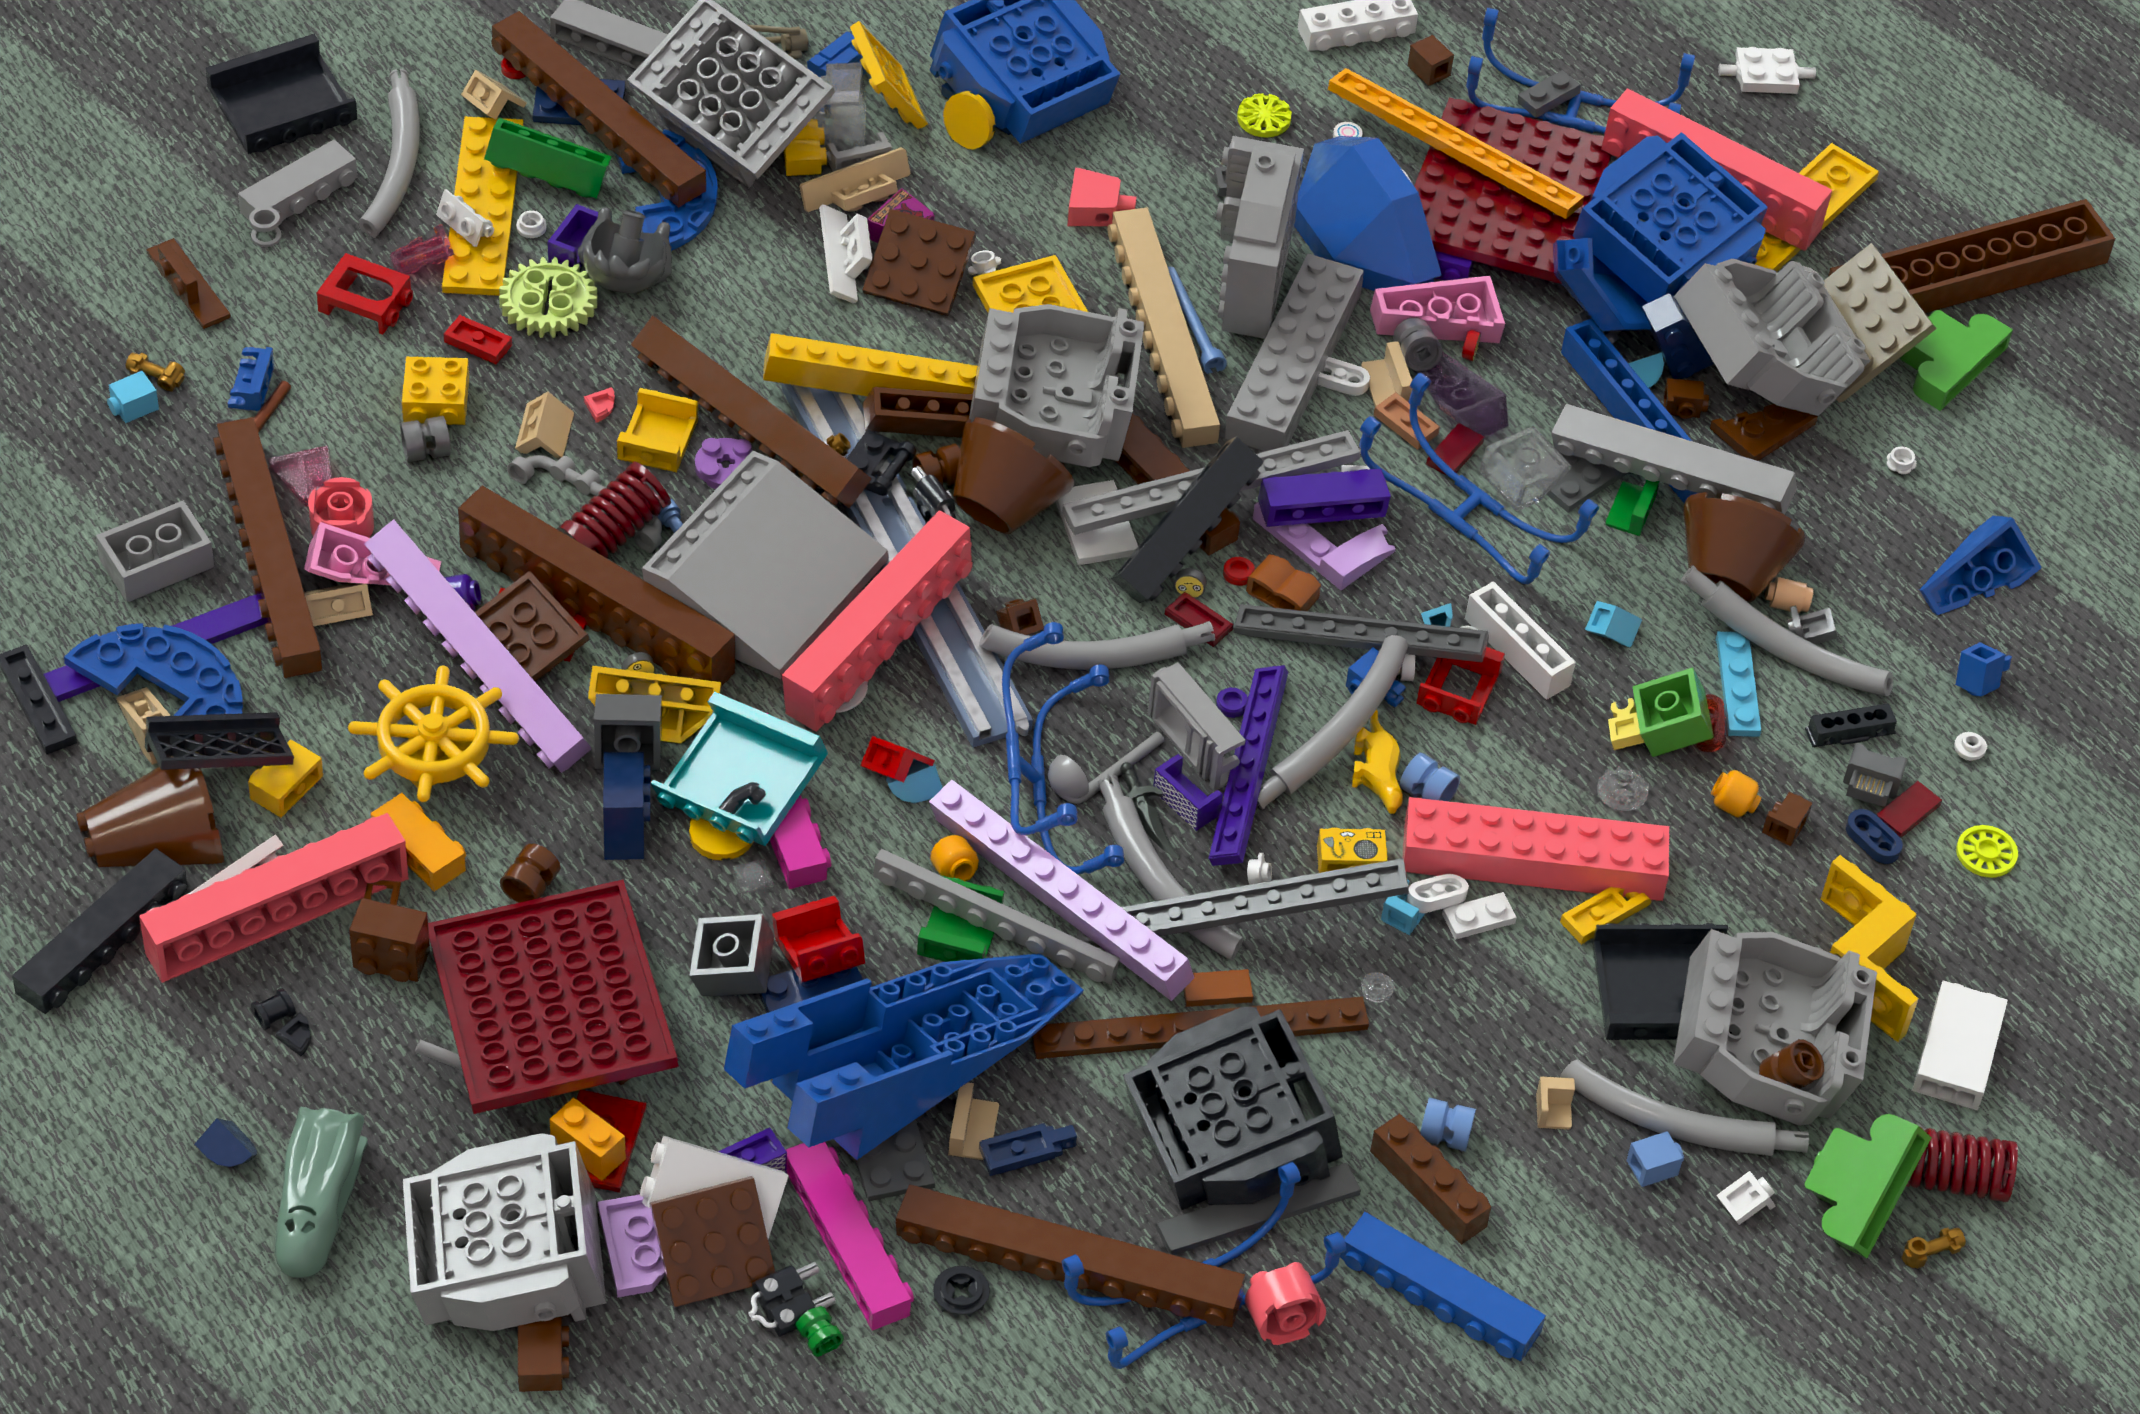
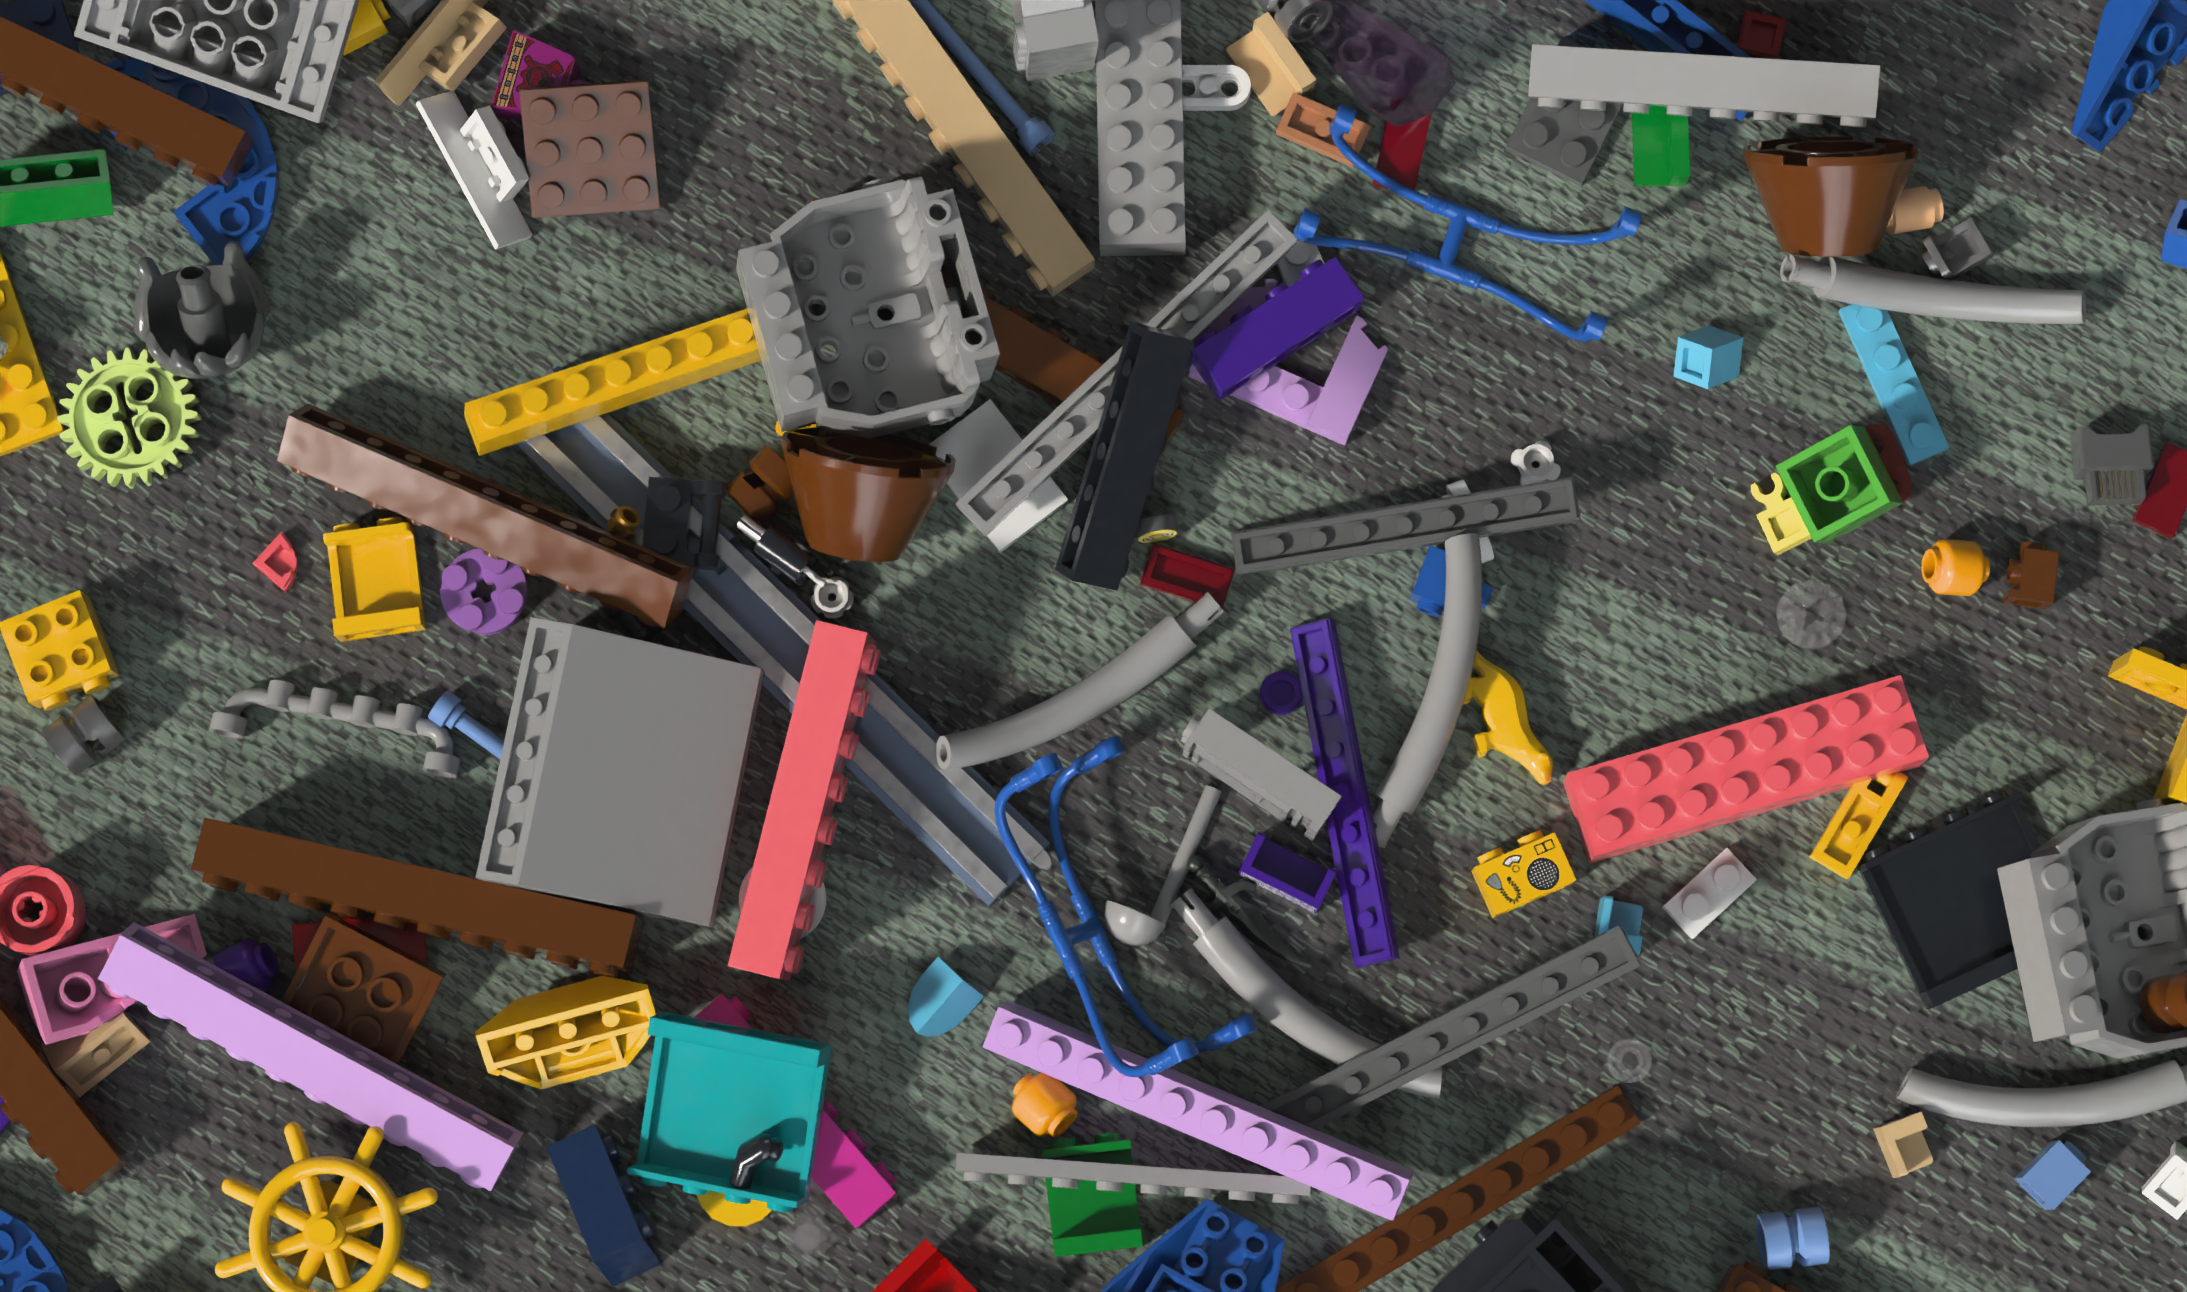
camera: 20 degrees left, 30 degrees up
(478, 339) = (70, 530): red plate -> none
(531, 218) = (39, 289): white plate -> none
(545, 425) = (226, 637): tan panel -> none
(570, 235) = (114, 306): dark purple panel -> none
(620, 516) = (380, 768): dark red piece -> none
(628, 725) = (561, 1102): dark grey brick -> none
(639, 662) = (523, 979): tile -> none
(891, 759) = (909, 989): red panel -> none
(916, 412) = (701, 420): reddish brown brick -> none
(983, 262) = (664, 94): white plate -> none
(1021, 616) = (959, 684): reddish brown brick -> none
(1027, 286) = (759, 138): yellow plate -> none
(1219, 988) = (1438, 1146): dark orange tile -> none
(1237, 570) = (1206, 475): red tile -> none
(1258, 870) = (1421, 953): white plate -> none
(1283, 586) = (1276, 482): dark orange brick -> none
(1427, 780) = (1577, 721): medium blue wheel -> none
(1437, 892) = (1647, 891): white plate -> none
(1439, 616) = (1491, 460): medium azure brick -> none
(1460, 708) = (1582, 571): red panel -> none
(1521, 639) = (1606, 445): white brick -> none
(1523, 467) = (1507, 153): clear slope -> none
(1851, 725) = (2054, 403): black piece -> none
(1875, 837) = (2143, 553): dark blue plate -> none

